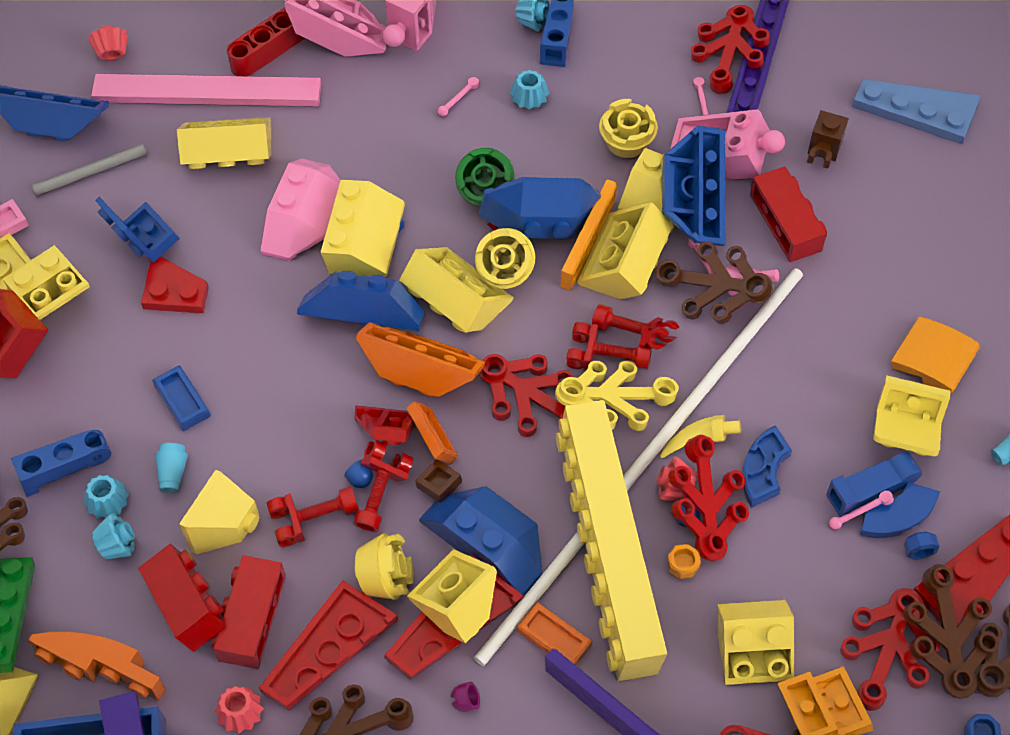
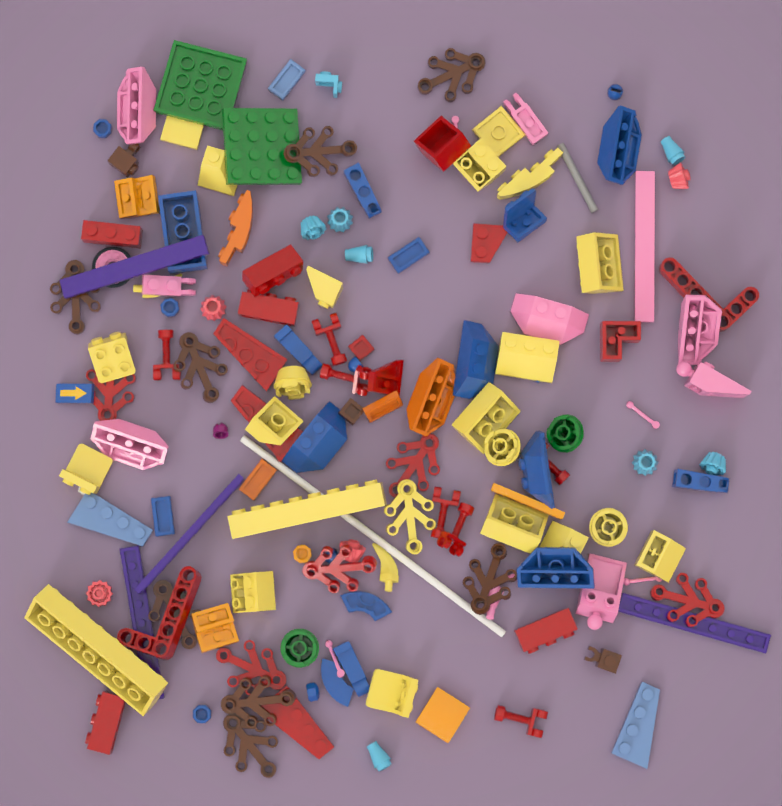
camera: 85 degrees right, 25 degrees up
(68, 52) = (672, 150): none -> medium azure cone
(78, 224) = (525, 180): none -> light yellow slope
(324, 566) = (298, 349): none -> blue leg
(329, 469) = (361, 348): none -> red tile
(342, 120) = (614, 334): none -> red brick
(665, 76) = (660, 556): none -> light yellow slope
(850, 557) = (299, 648): none -> green cone
(924, 275) = (501, 714): none -> red bar

